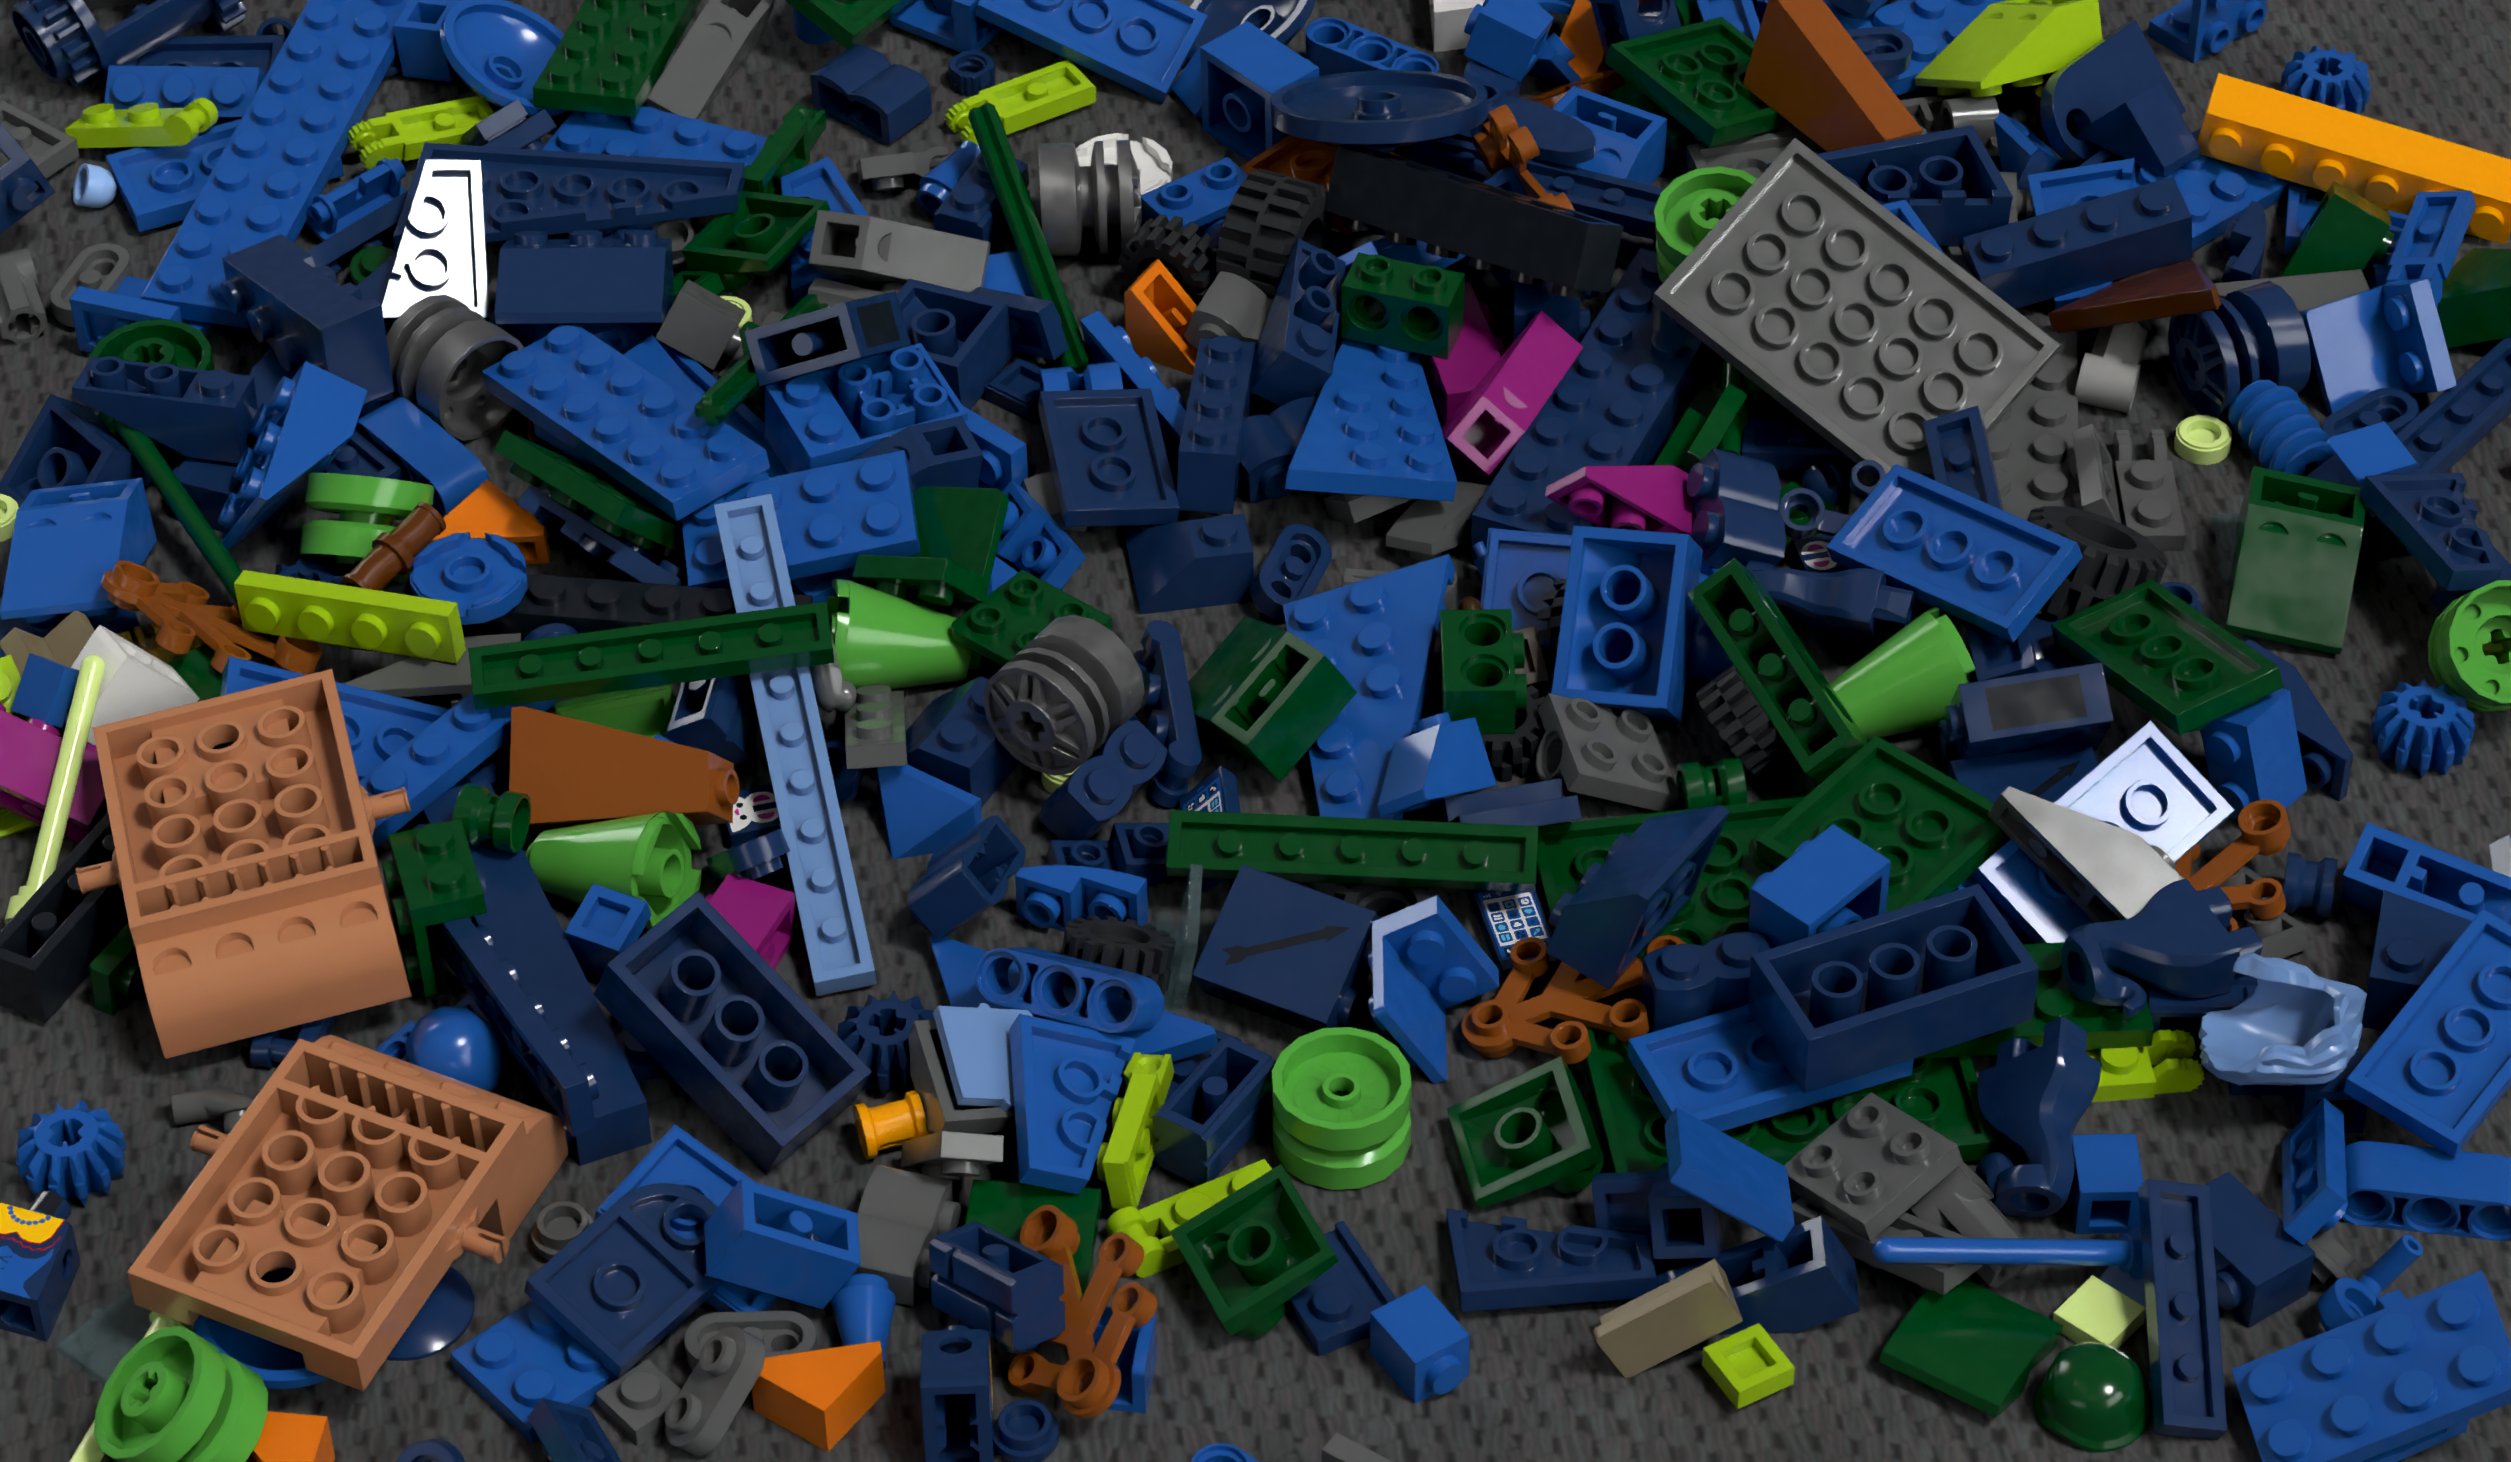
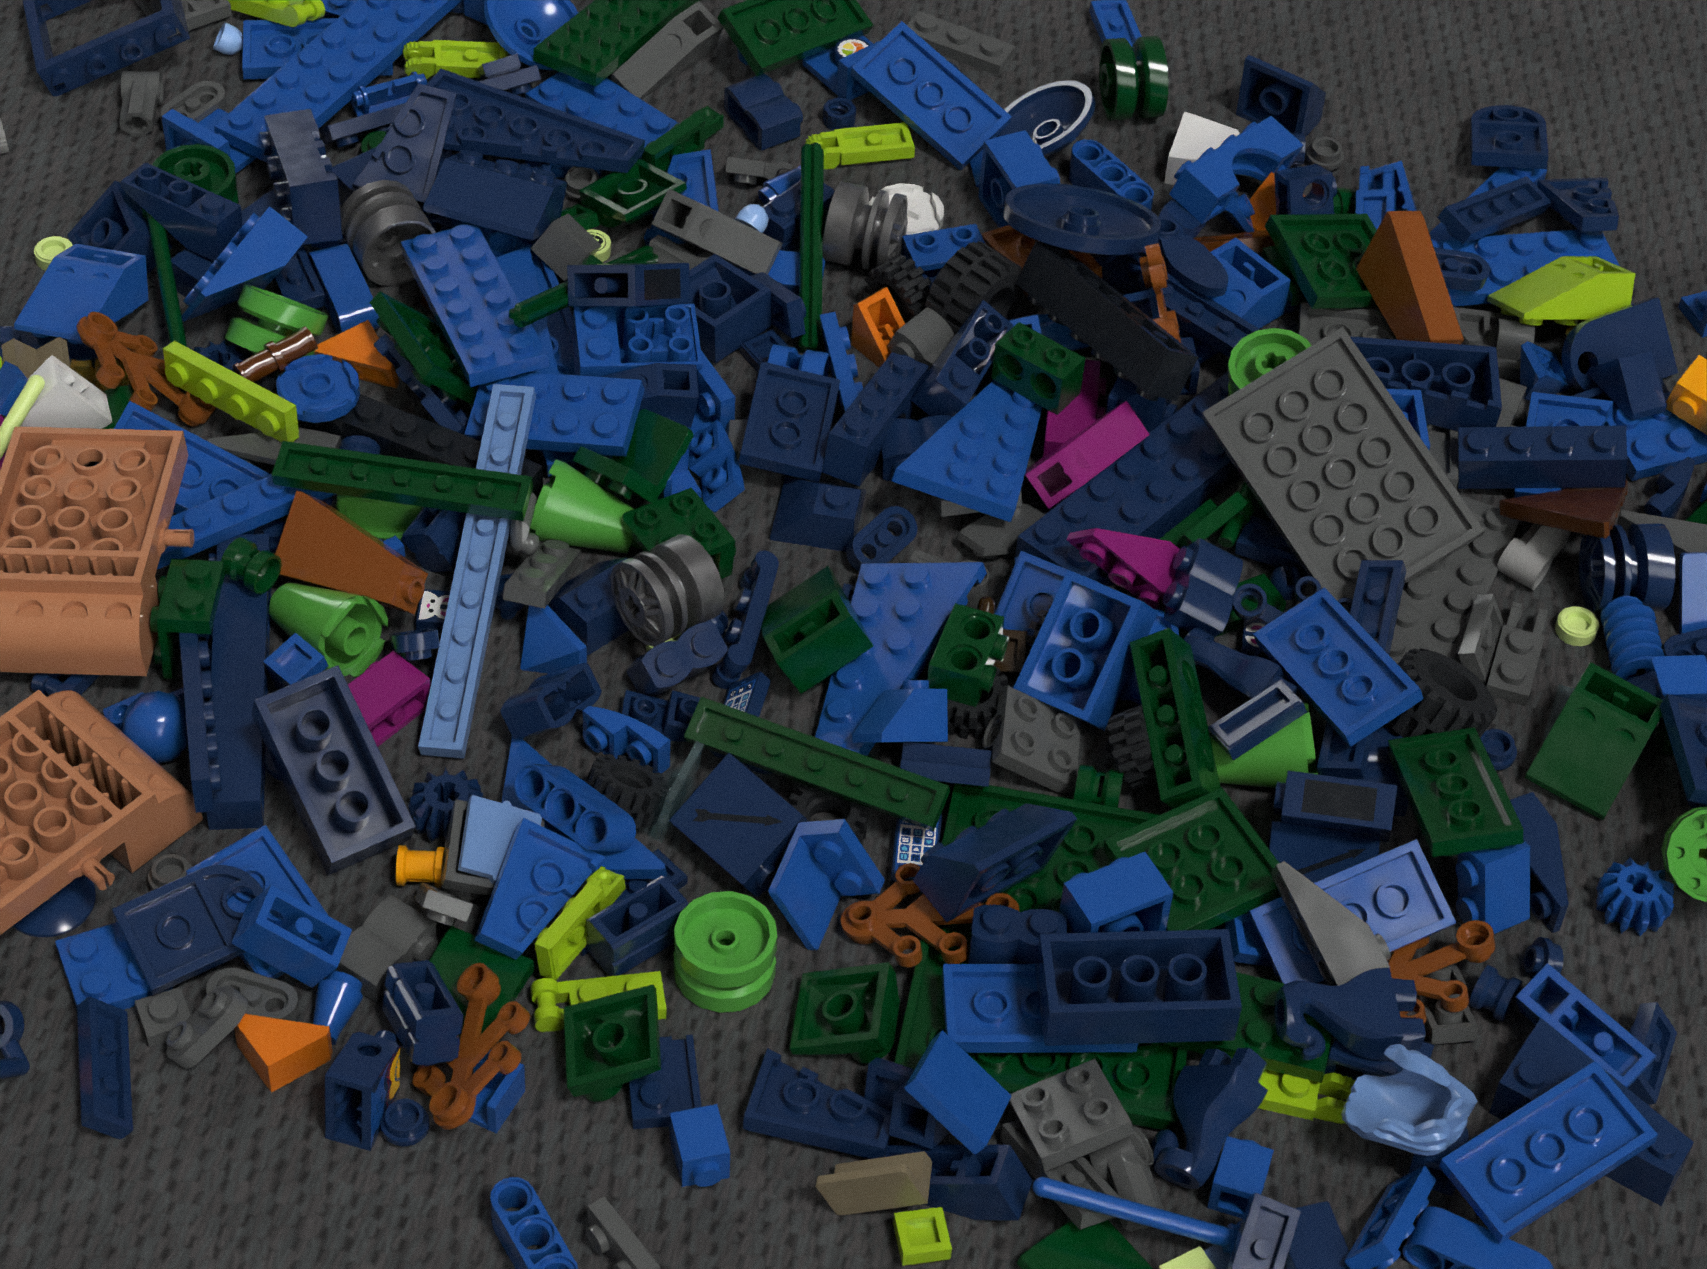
camera: 15 degrees right, 5 degrees up
(938, 217) = (754, 217): none -> light blue hinge
(1883, 643) = (1257, 719): none -> dark blue tile
(2343, 828) = (1541, 953): none -> dark blue plate

